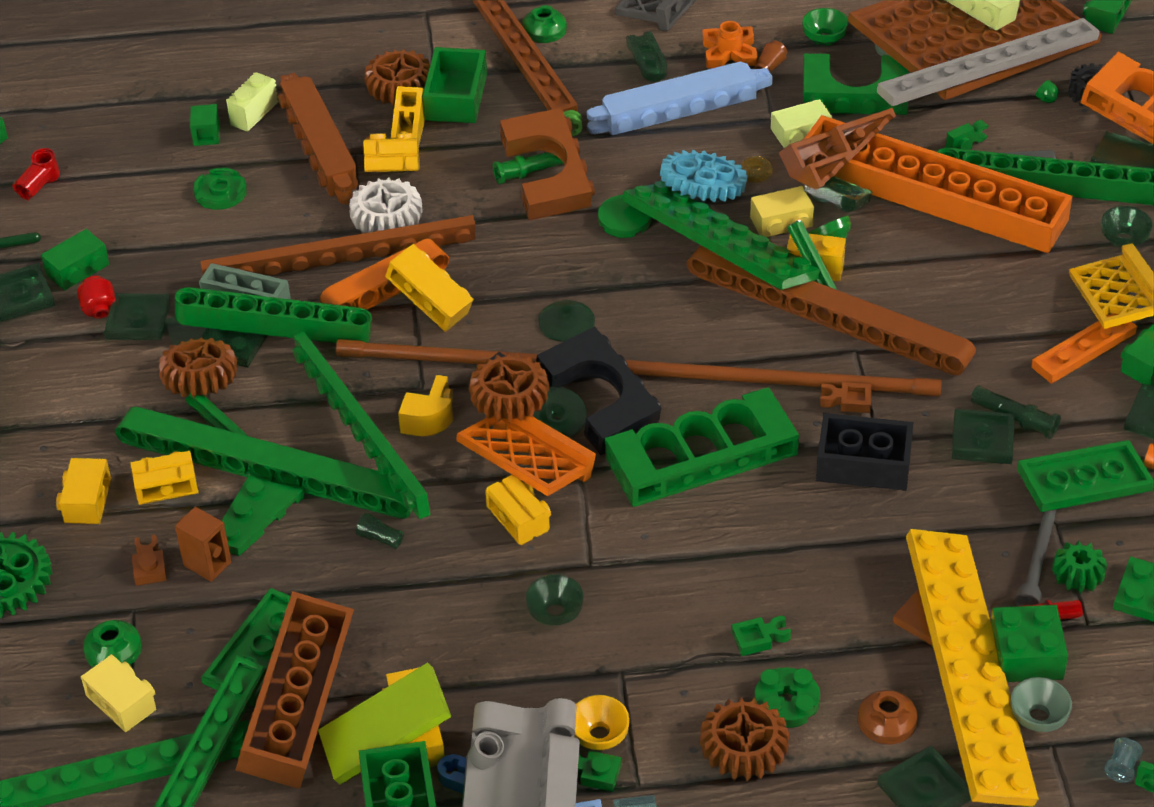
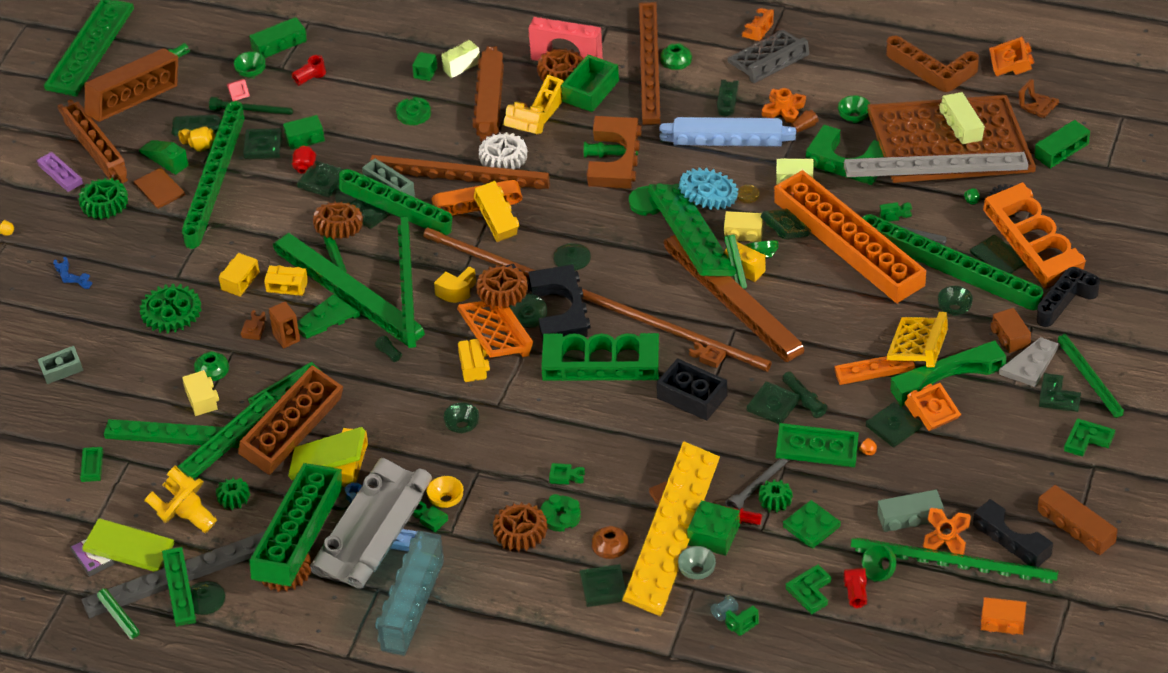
camera: 25 degrees right, 0 degrees up
(362, 30) = (543, 31): none -> coral arch
(576, 119) = (649, 129): bright green bush -> none
(823, 155) = (778, 197): dark orange wedge -> none

